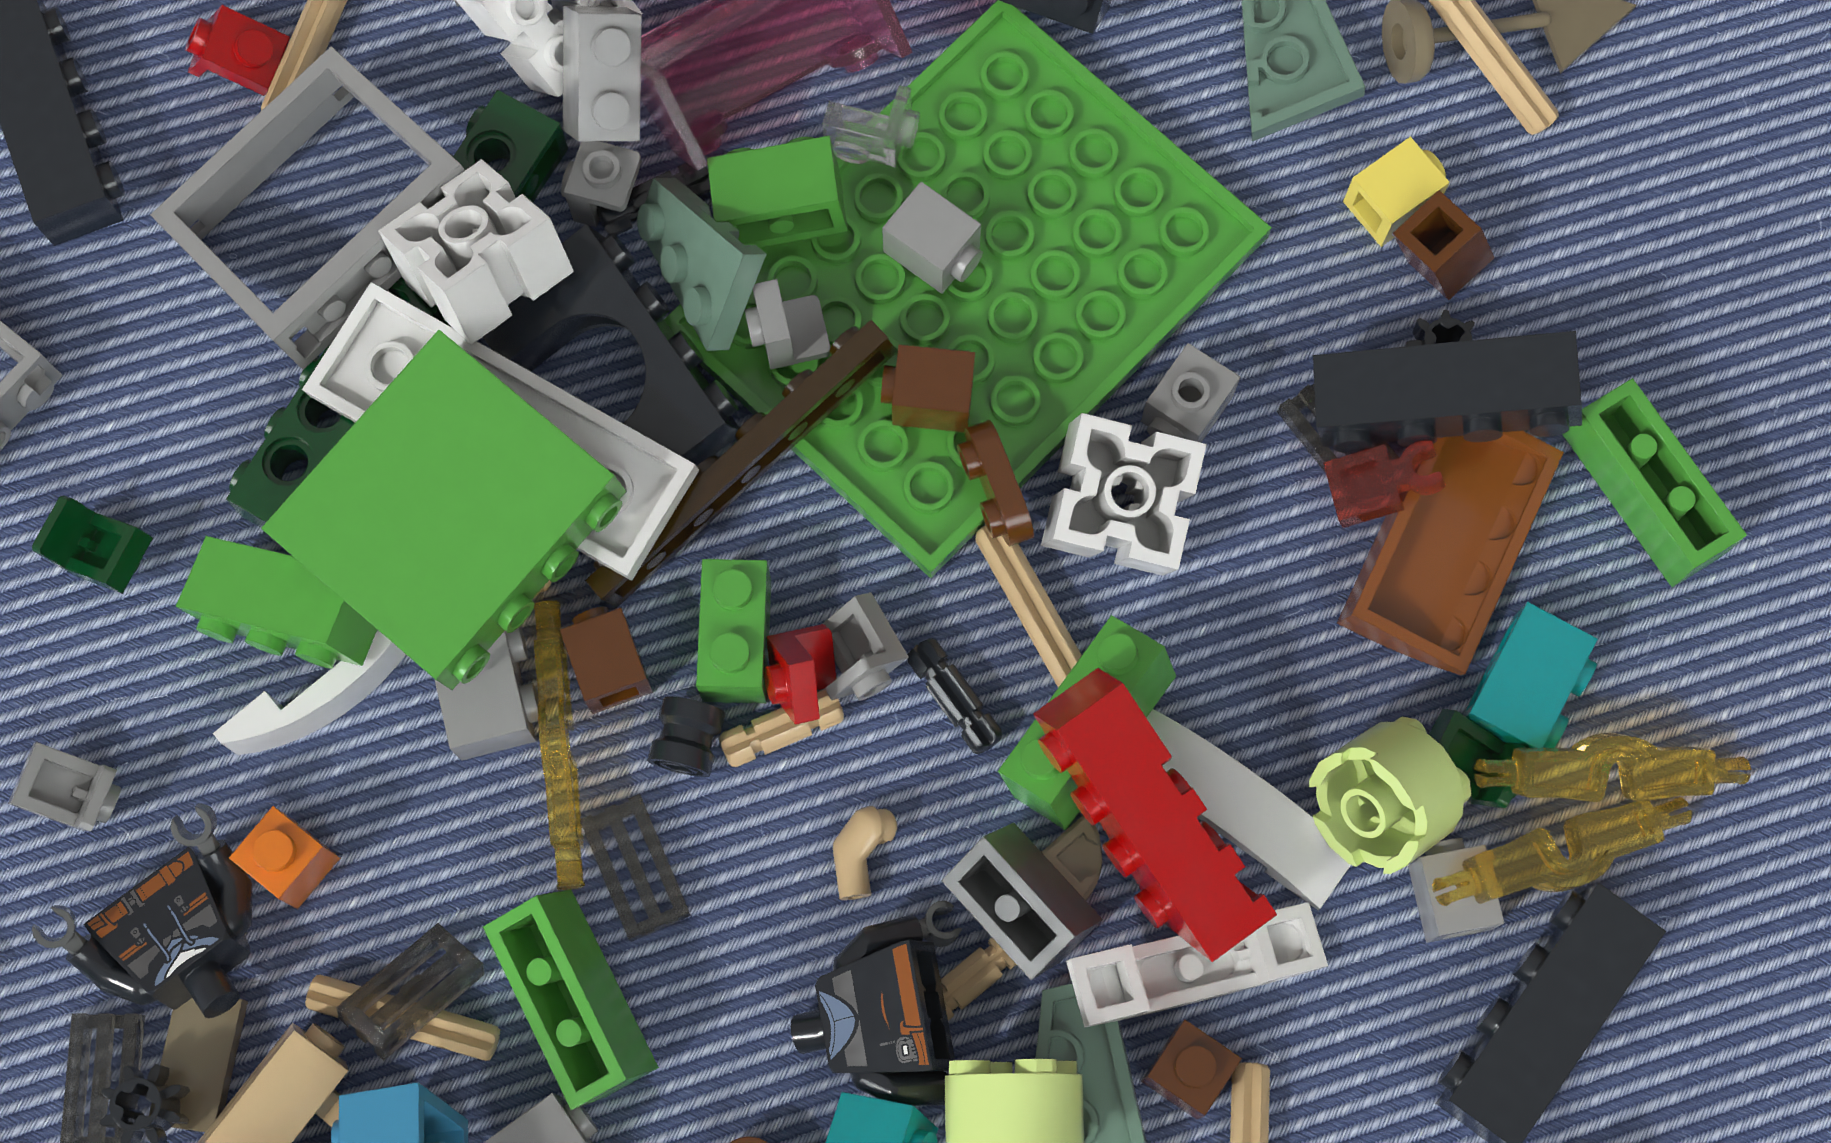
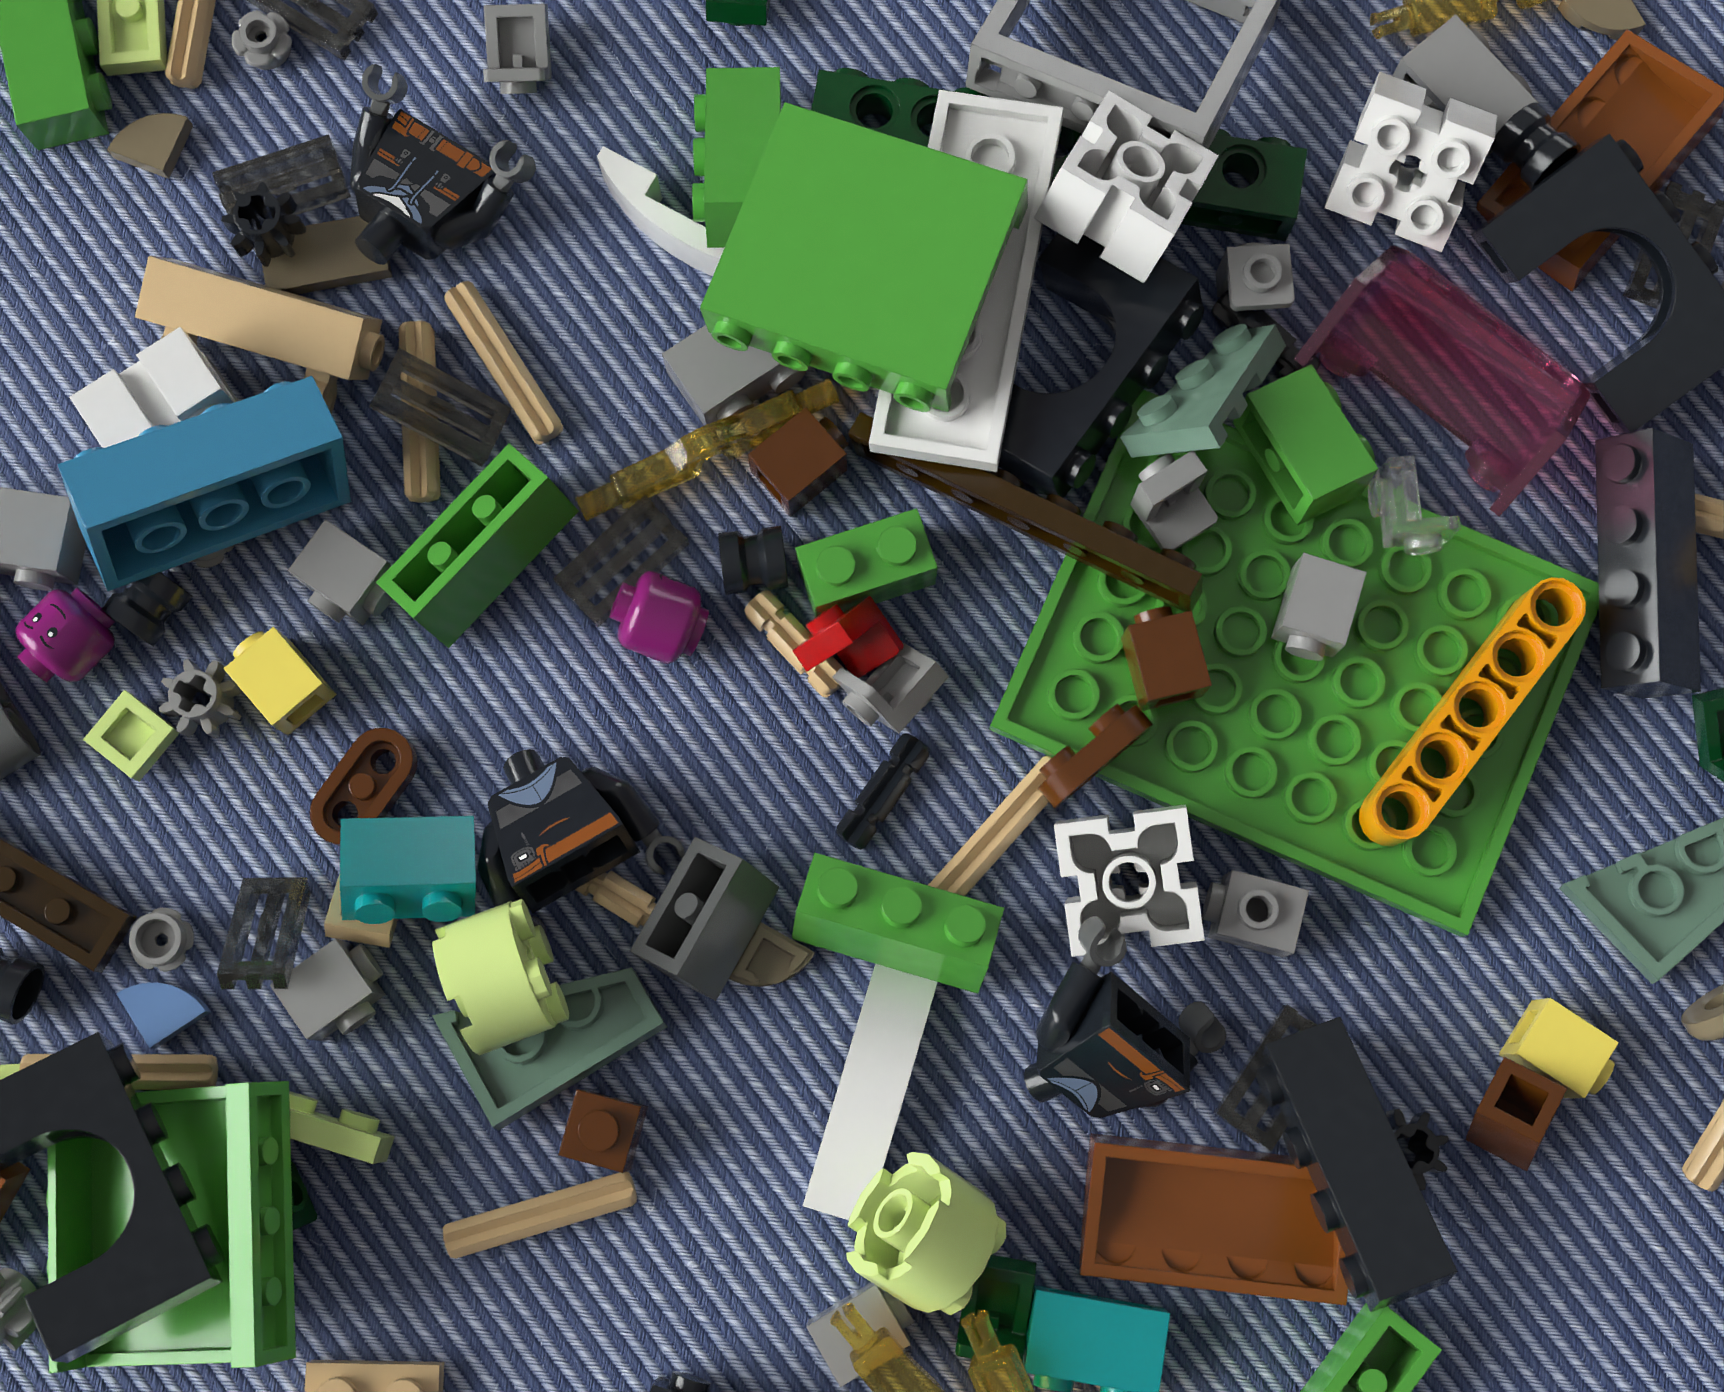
camera: 70 degrees right, 5 degrees up
(284, 858) = (519, 253): orange brick -> none
(386, 915) = (503, 362): none -> tan axle
(601, 73) = (1356, 233): light grey brick -> none
(709, 845) = (659, 617): none -> magenta head
(853, 846) = (710, 750): tan arm -> none
(1077, 118) = (1497, 695): none -> light orange beam
(1149, 816) = (814, 1007): red wedge -> none
(1173, 973) = (702, 1102): white slope -> none
(1265, 567) = (1111, 1045): none -> black torso
(1371, 483) = (1235, 1120): clear red plate -> none

